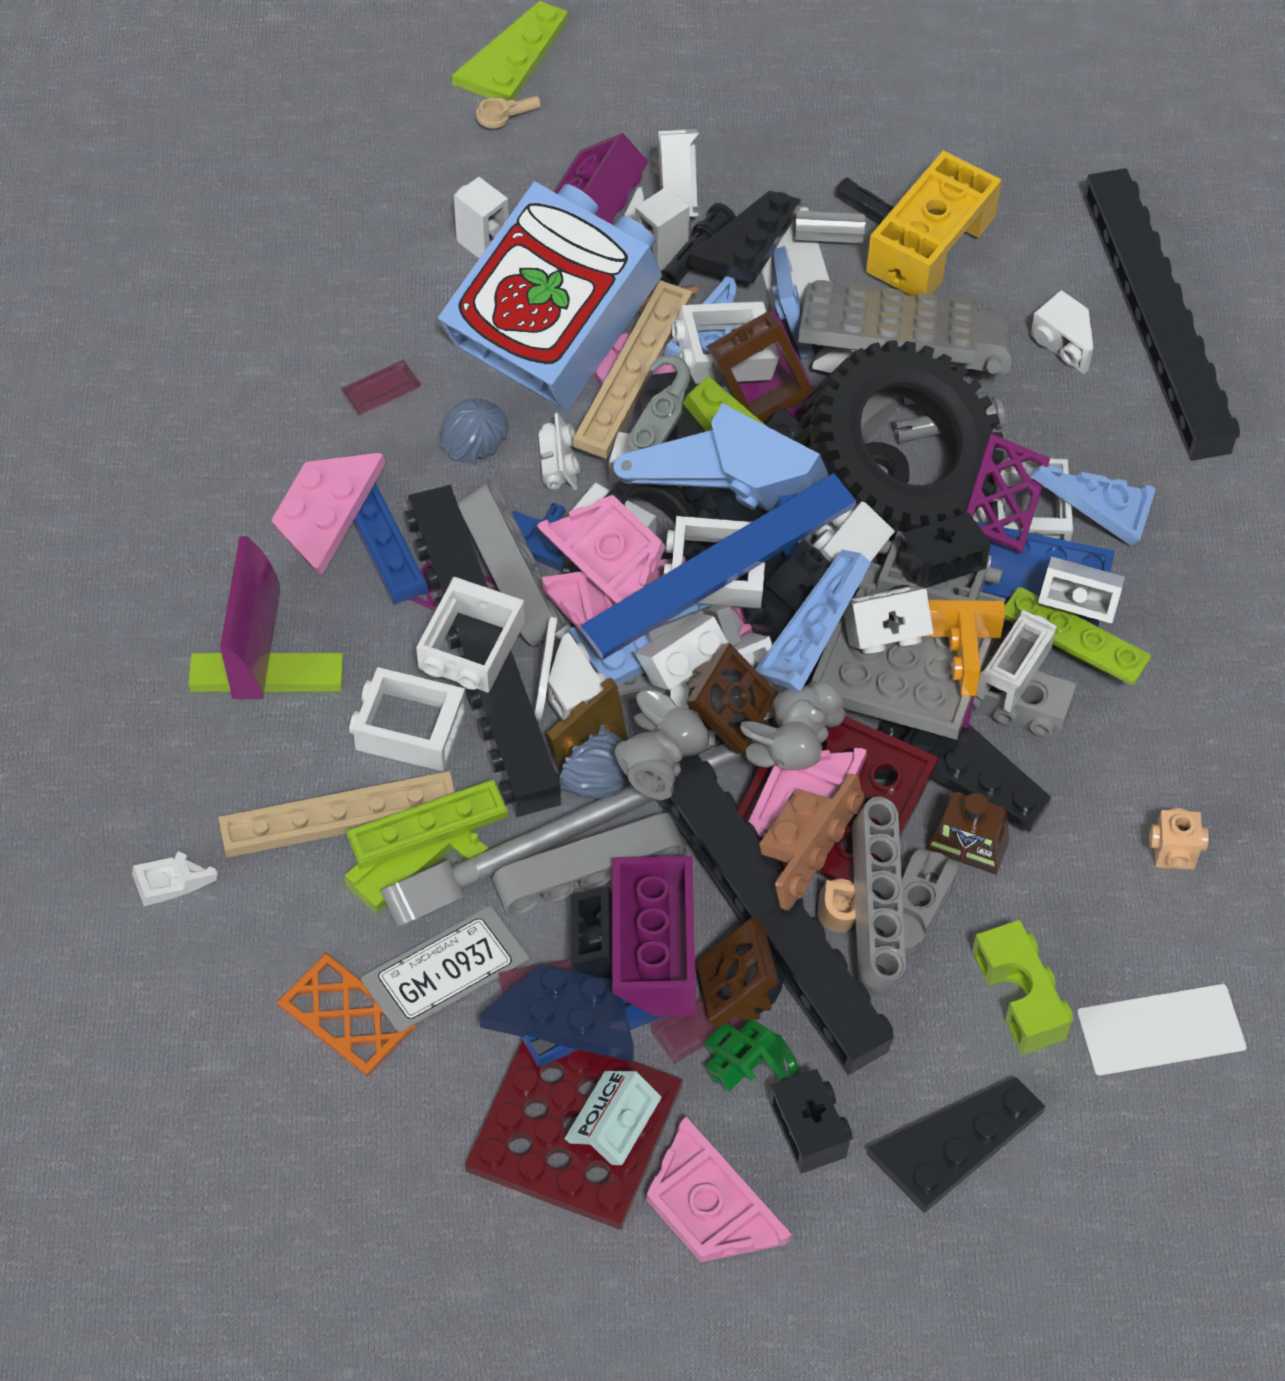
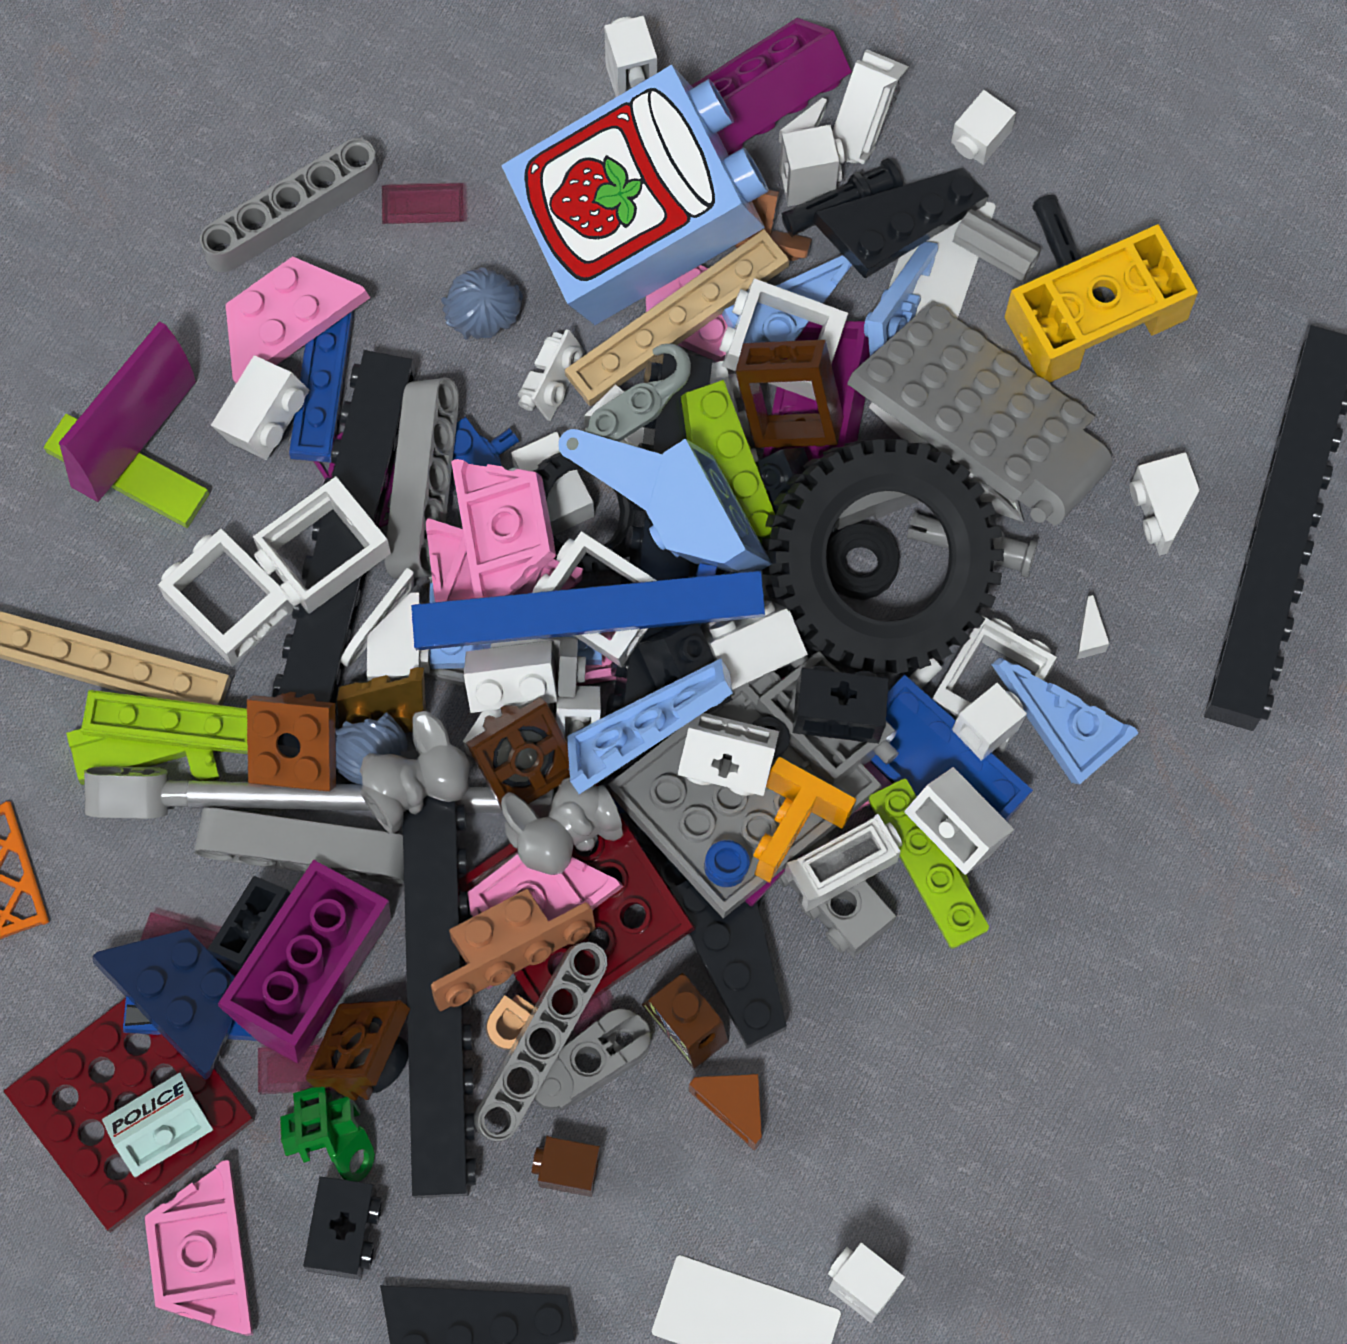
camera: 30 degrees right, 15 degrees up
(277, 431) = (282, 222): none -> light grey beam
(351, 573) = (260, 407): none -> white brick
(444, 968) = (107, 878): sticker -> none
(546, 757) = (309, 722): none -> dark orange piece
(766, 158) = (983, 127): none -> white brick
(936, 695) = (726, 863): none -> blue tile
(954, 984) = (566, 1166): none -> reddish brown brick
(977, 498) = (920, 660): magenta window -> none
(1012, 956) = (629, 1246): lime arch -> none
(1047, 876) = (734, 1102): none -> dark orange slope
(1055, 516) = (989, 720): none -> white brick
(1075, 439) = (1092, 633): none -> white piece
(1178, 839) = (883, 1153): light nougat brick -> none
(1235, 941) = (864, 1281): none -> white brick

